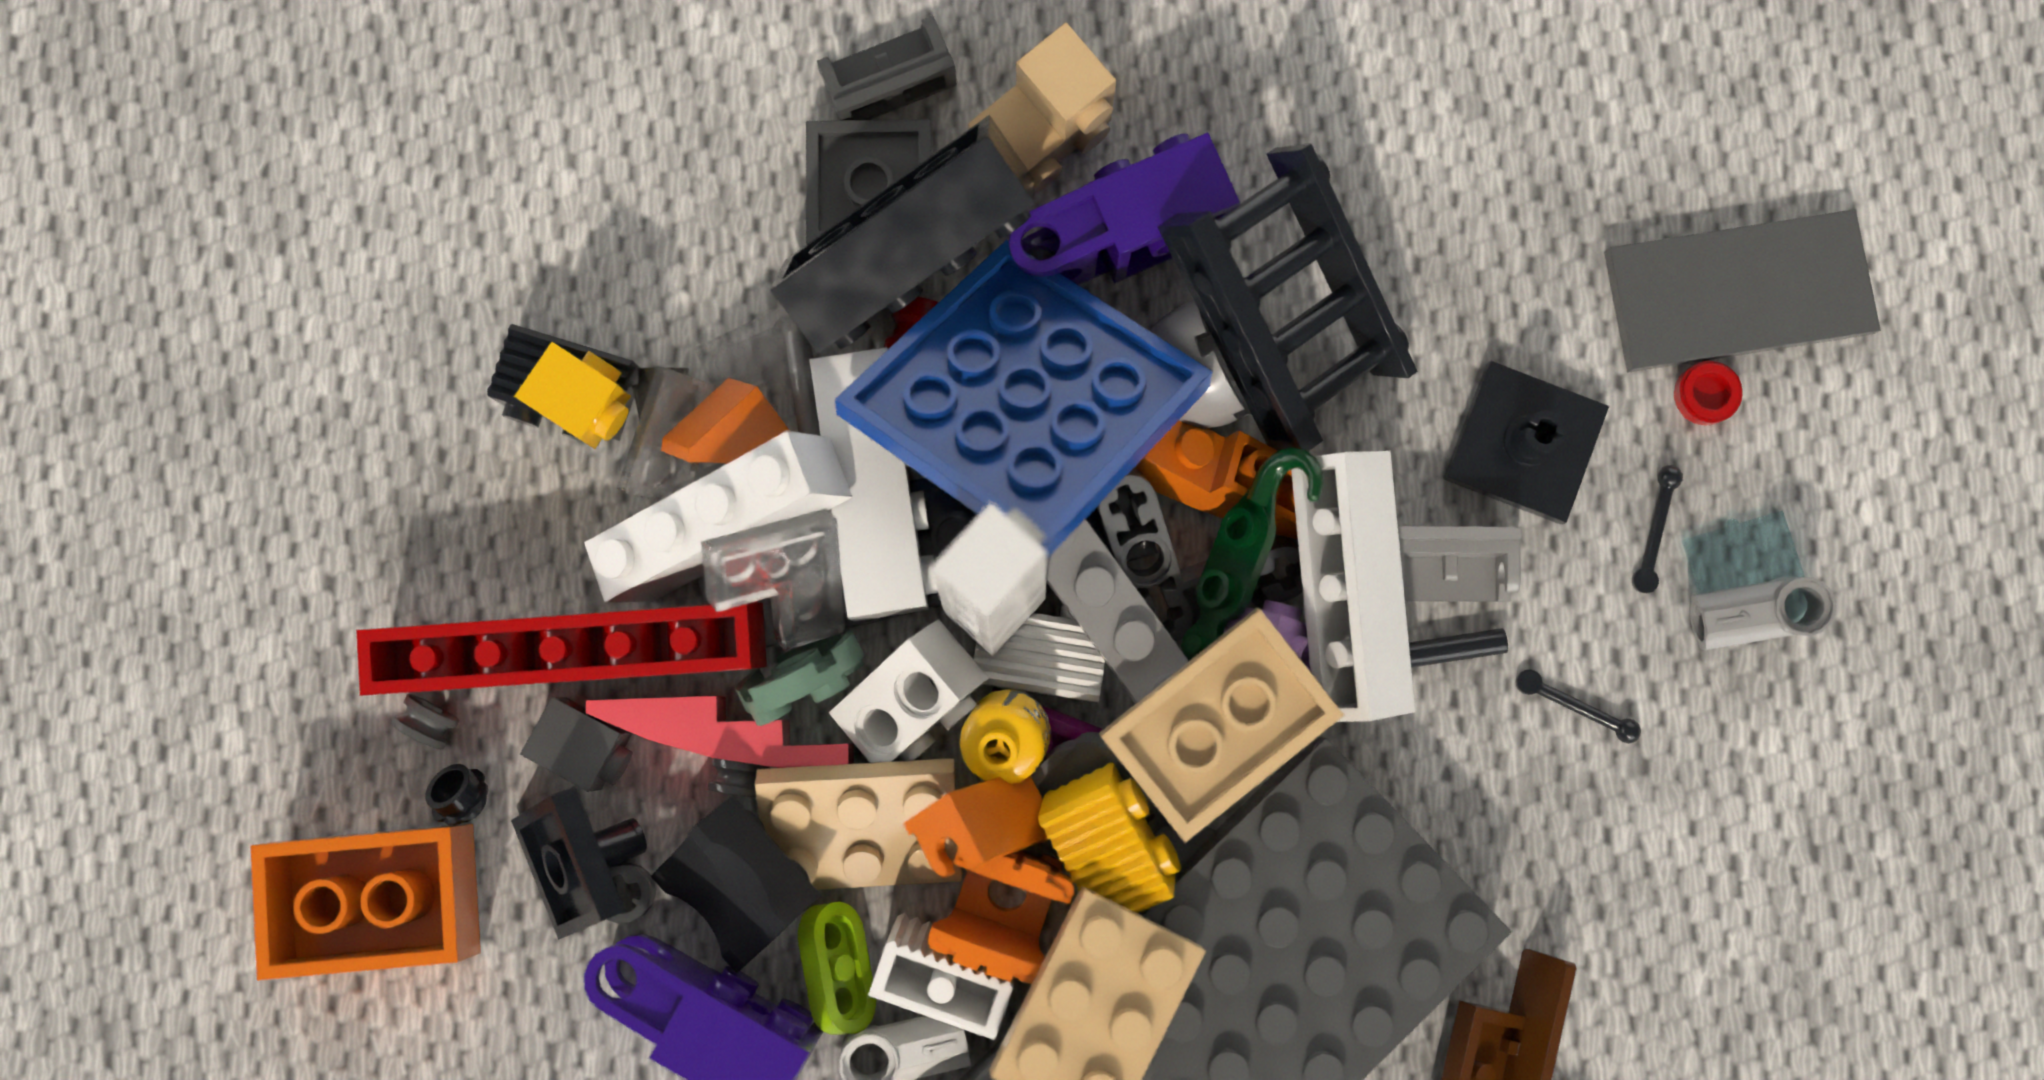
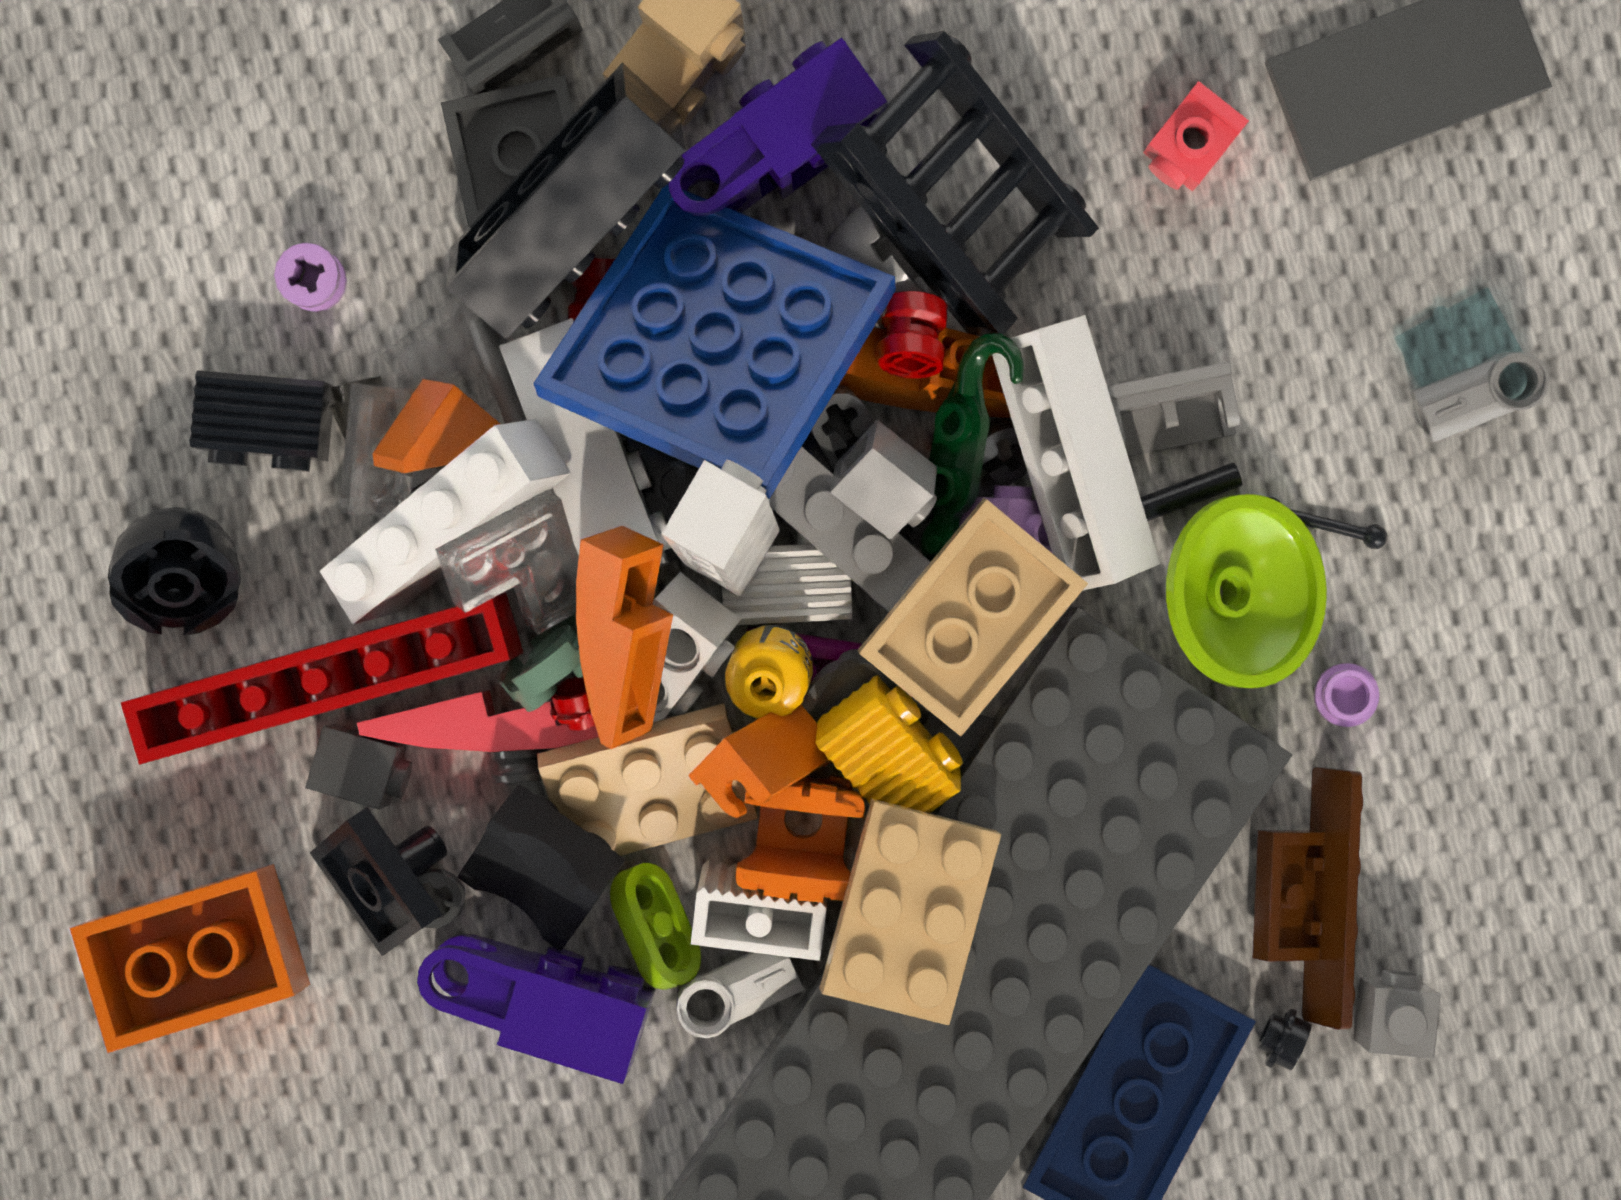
camera: 10 degrees left, 5 degrees up
(424, 722) = (204, 776): dark grey bush -> none
(441, 514) = (174, 572): none -> black cylinder
(457, 794) = (252, 839): black plate -> none
(577, 394) = (280, 429): yellow brick -> none
(650, 272) = (318, 288): none -> lavender wheel
(811, 727) = (572, 705): none -> red plate
(867, 664) = (620, 631): none -> orange slope
(1161, 571) = (885, 481): none -> light grey brick
(1216, 440) = (912, 336): none -> red wheel
(1494, 757) = (1269, 587): none -> lime dish
(1526, 442) = (1222, 273): black tile -> none
(1543, 288) = (1209, 115): none -> coral brick
(1571, 882) = (1346, 695): none -> lavender plate
(1645, 579) = (1365, 384): black hinge -> none
(1708, 393) = (1393, 185): red tile -> none

